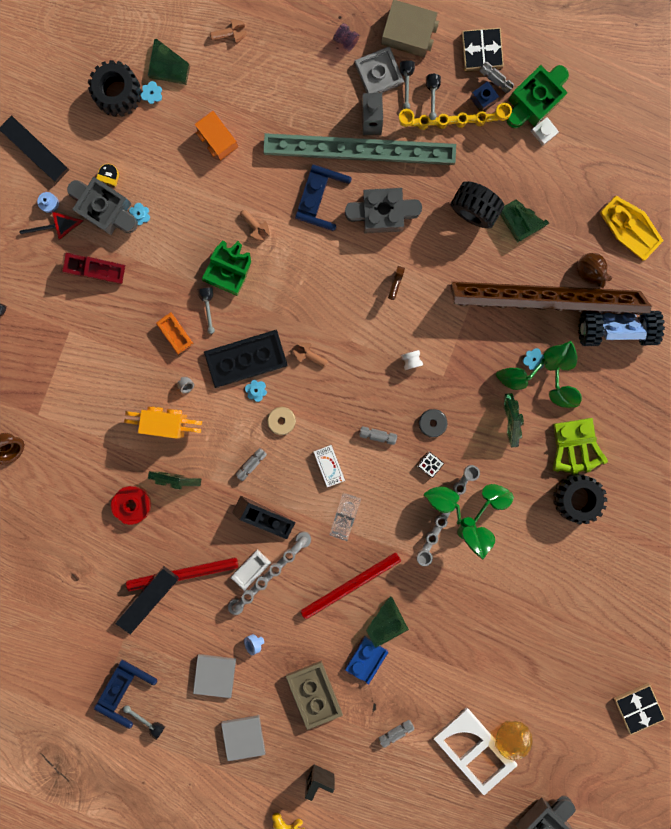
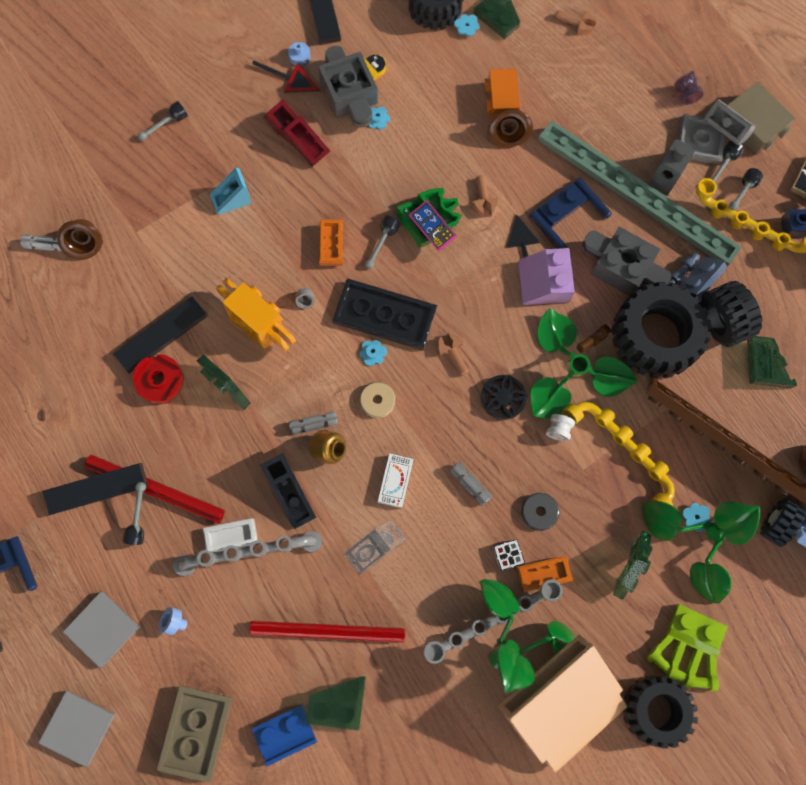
camera: 30 degrees right, 15 degrees down
(81, 345) = (230, 193): none -> medium azure slope
(109, 474) = (160, 334): none -> black tile
(191, 610) = (134, 533): none -> hinge
(236, 276) = (432, 225): none -> tile
(239, 161) = (510, 128): none -> reddish brown hat
(272, 475) = (327, 446): none -> pearl gold head
(300, 237) = (521, 236): none -> black piece
(336, 259) = (546, 277): none -> lavender slope
(362, 362) = (503, 397): none -> black wheel
(392, 49) = (729, 122): none -> light grey brick
(394, 342) = (548, 396): none -> green plant
(442, 189) = (702, 274): none -> sand blue plate
(455, 229) = (681, 310): none -> black tyre
(455, 337) = (622, 436): none -> yellow bar
(463, 457) = (535, 574): none -> orange plate
(521, 535) = (565, 704): none -> light nougat piece

